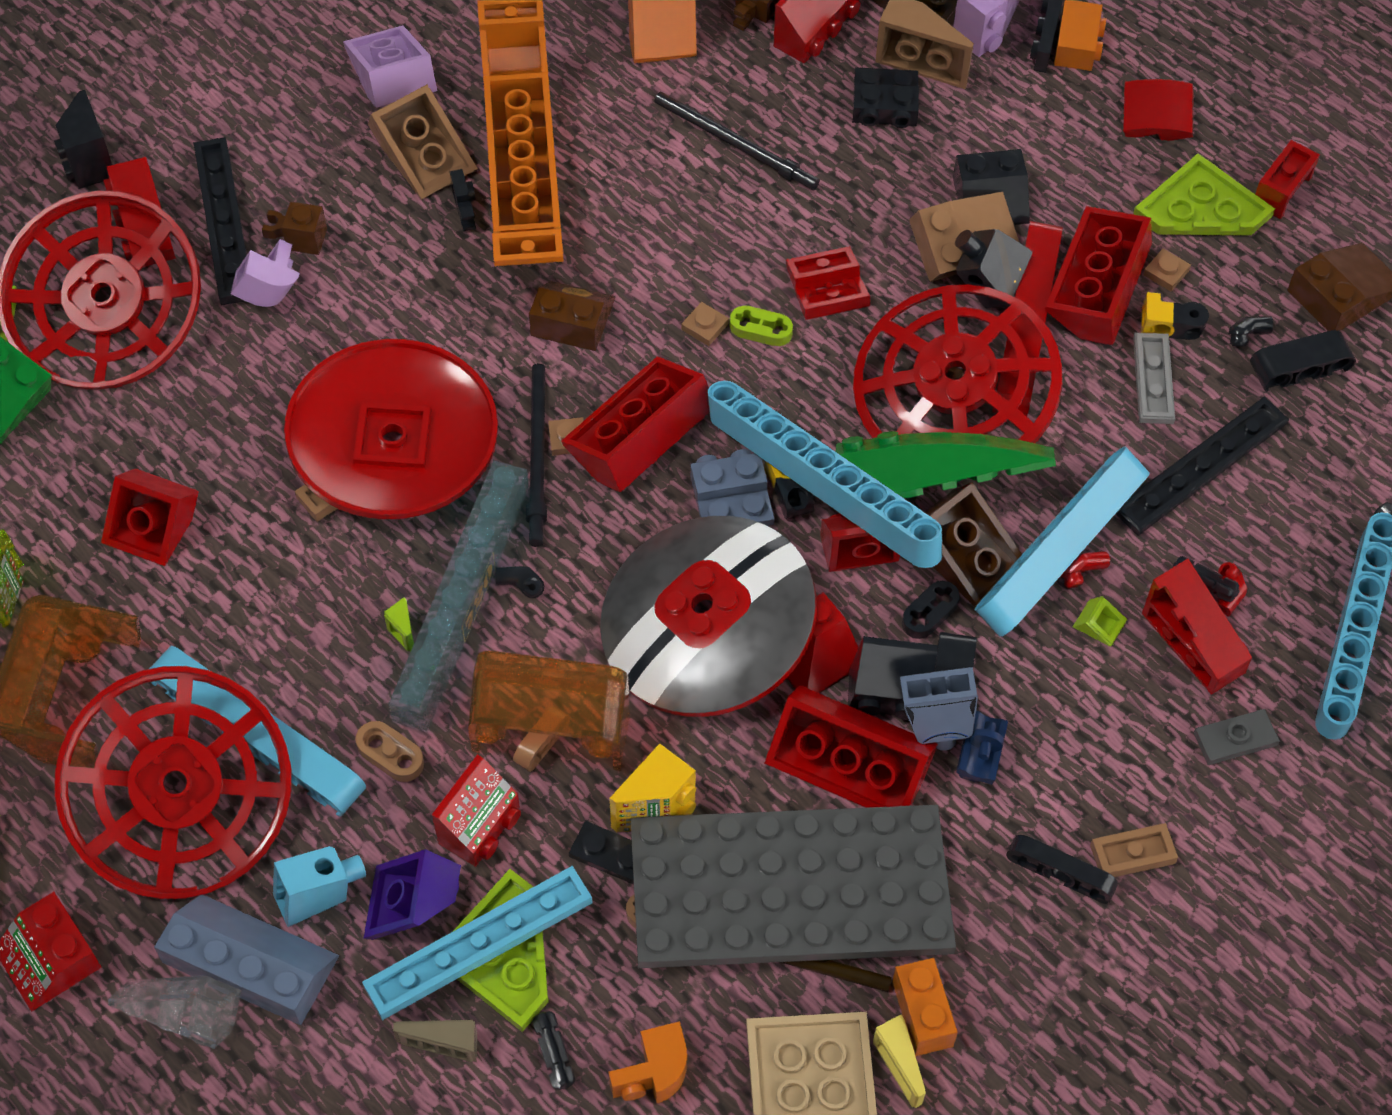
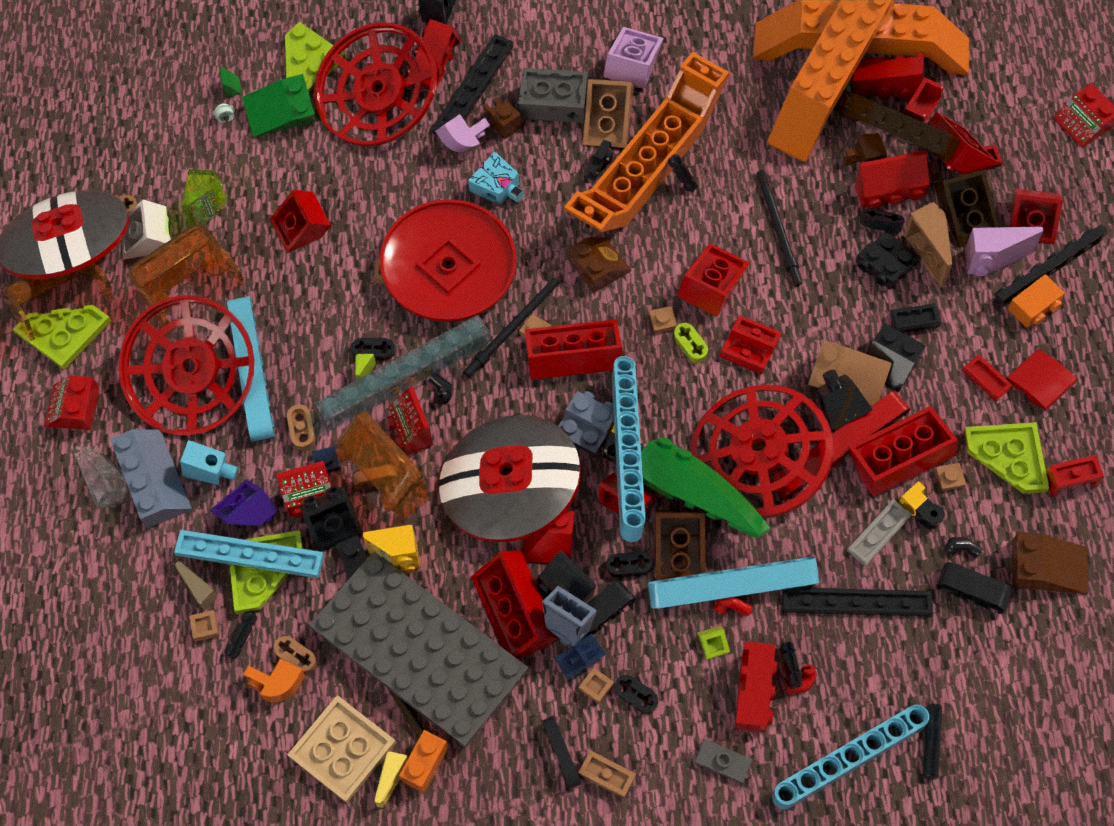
camera: 45 degrees right, 5 degrees up
(338, 162) = (553, 95): none -> dark grey piece
(360, 303) = (496, 181): none -> medium azure torso
(388, 594) = (373, 346): none -> black beam
(453, 763) = (329, 457): none -> dark blue plate
(497, 1076) = (204, 625): none -> medium nougat plate
(528, 629) = (410, 423): none -> red slope
(539, 821) = (330, 518): none -> black plate
(577, 149) = (682, 173): none -> black axle
(641, 1008) = (298, 649): none -> medium nougat beam
(721, 242) = (712, 279): none -> red slope
(841, 59) = (882, 220): none -> black beam
(974, 133) = (915, 318): none -> black plate
(1027, 766) = (596, 685): none -> medium nougat plate
(1080, 748) = (640, 689): none -> black beam
(1103, 145) = (987, 377): none -> red tile

